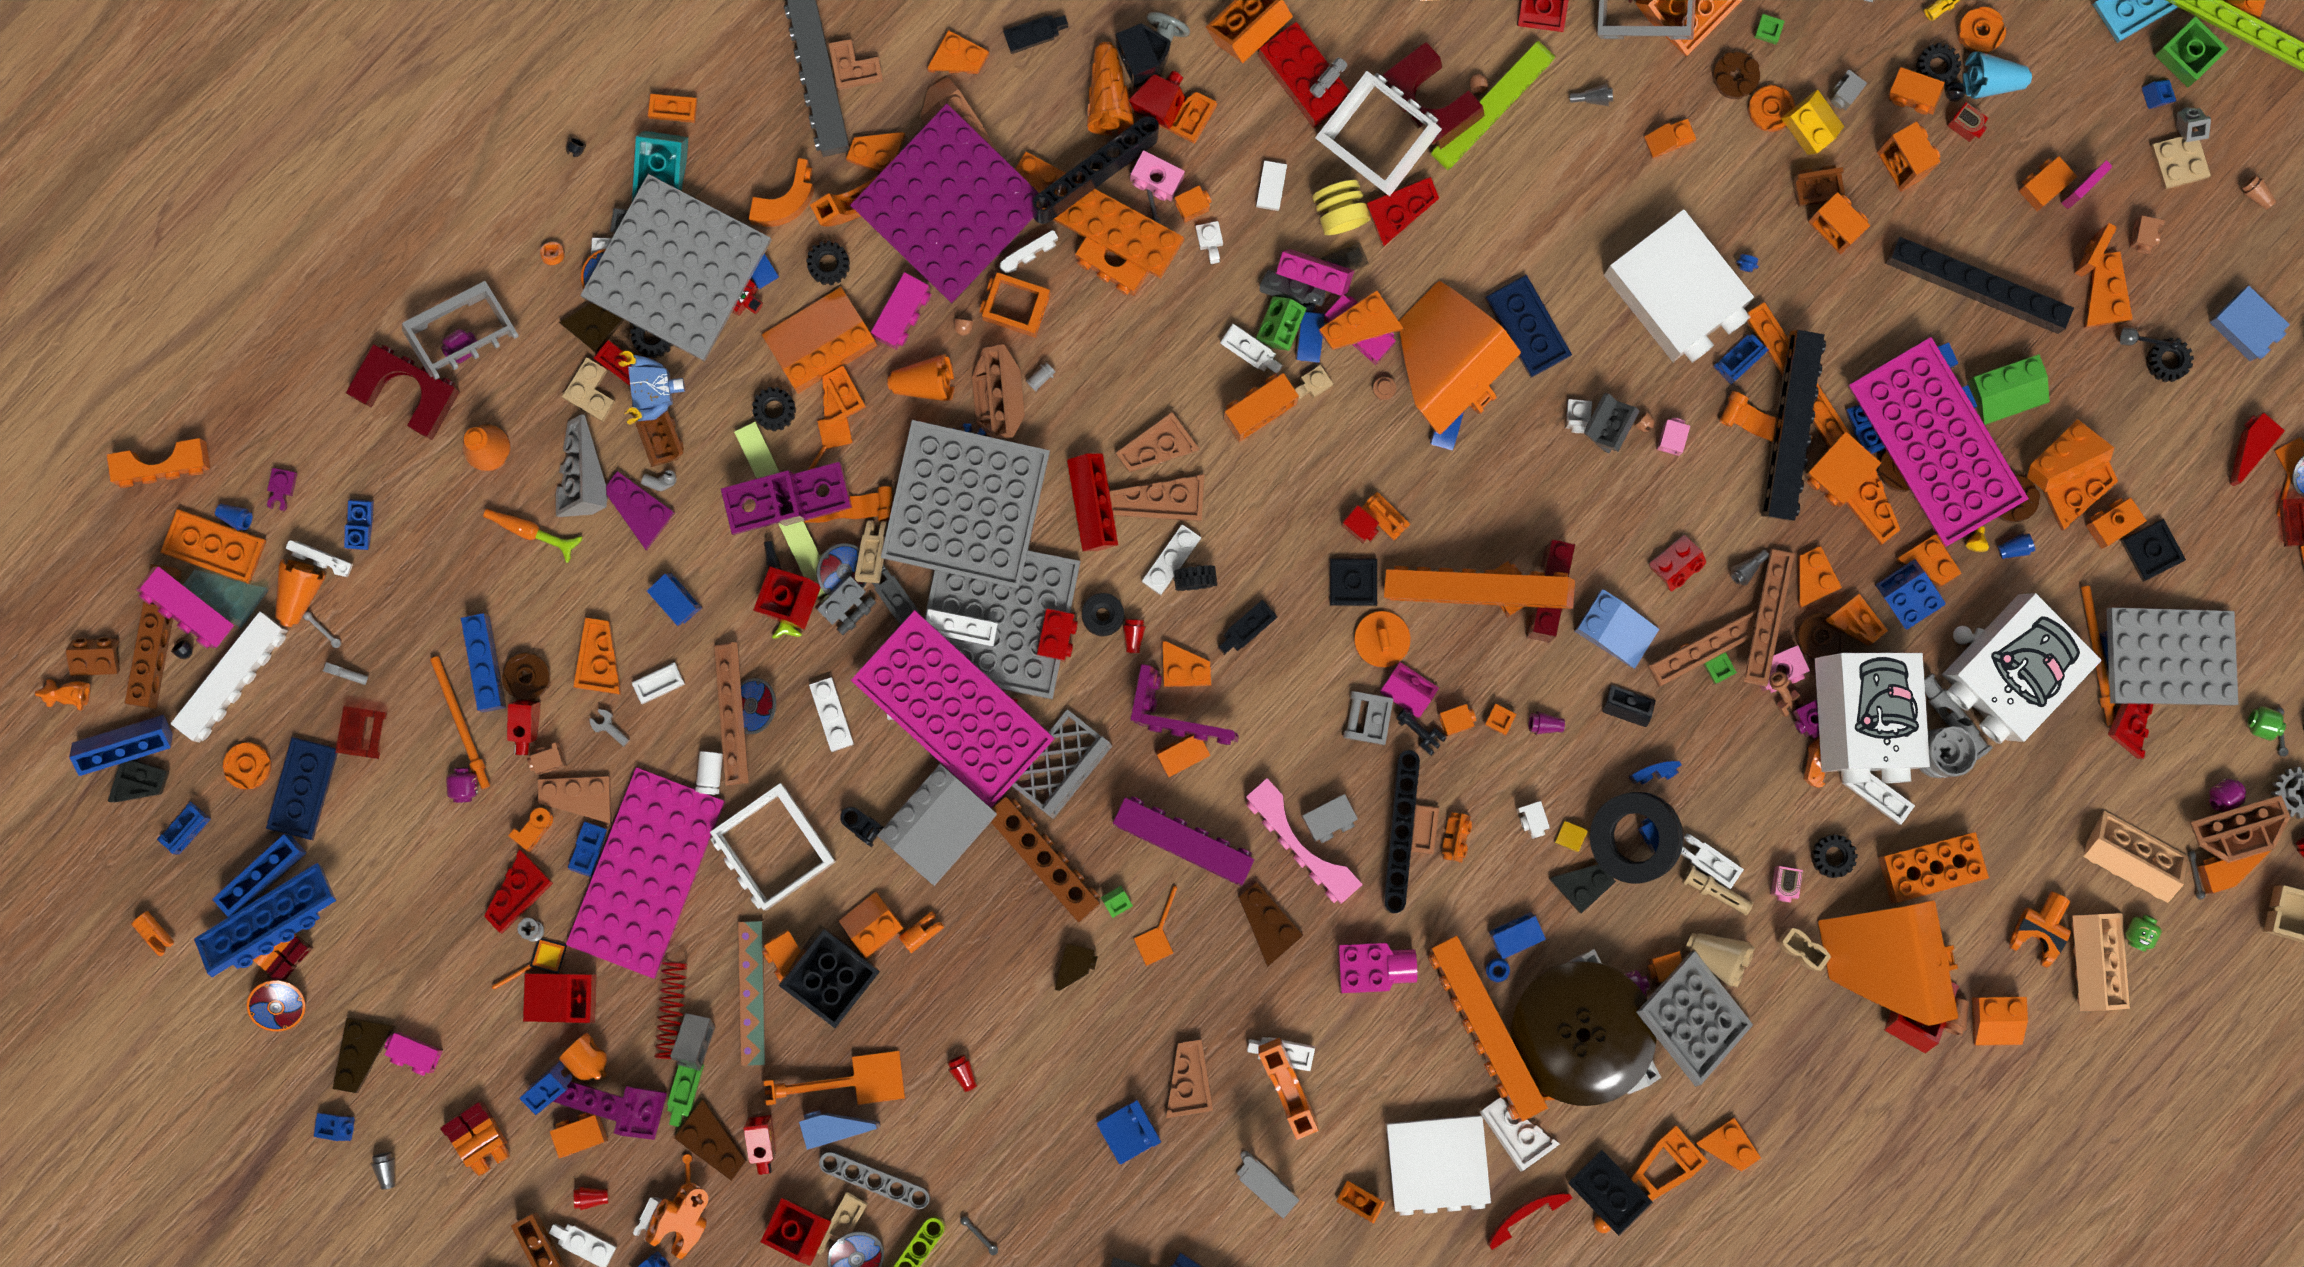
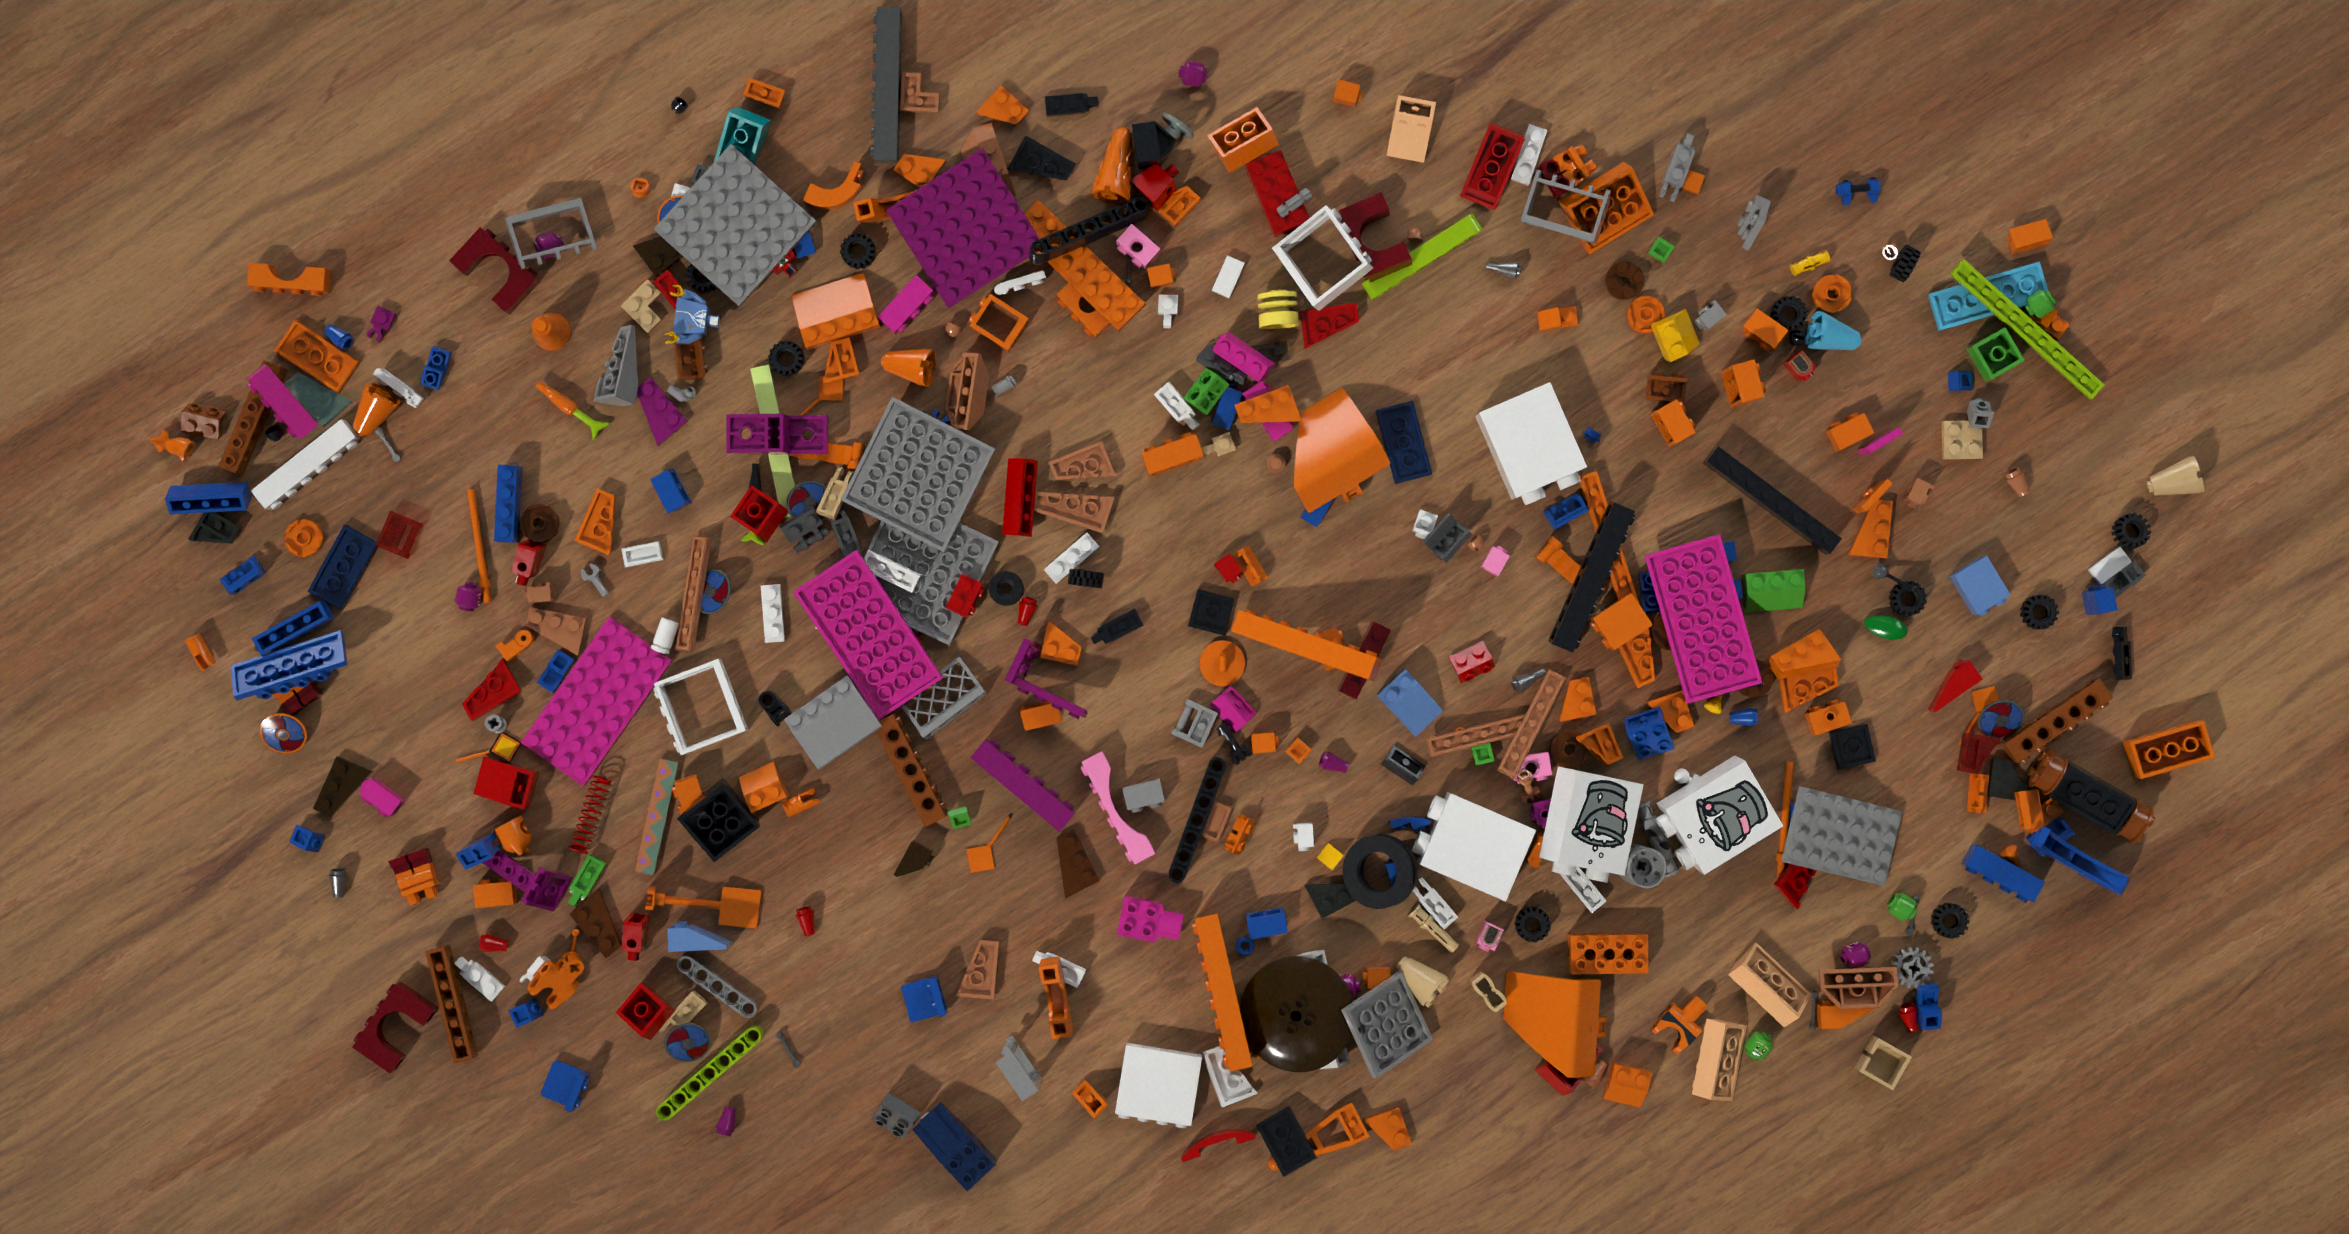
camera: 20 degrees right, 5 degrees up
(345, 673) = (392, 481): light grey bar -> none
(693, 1041) = (601, 843): dark grey hinge -> none
(1017, 105) = (1040, 161): none -> black wing
(1739, 777) = (1473, 845): none -> white brick
(2154, 399) = (1886, 627): none -> green arm

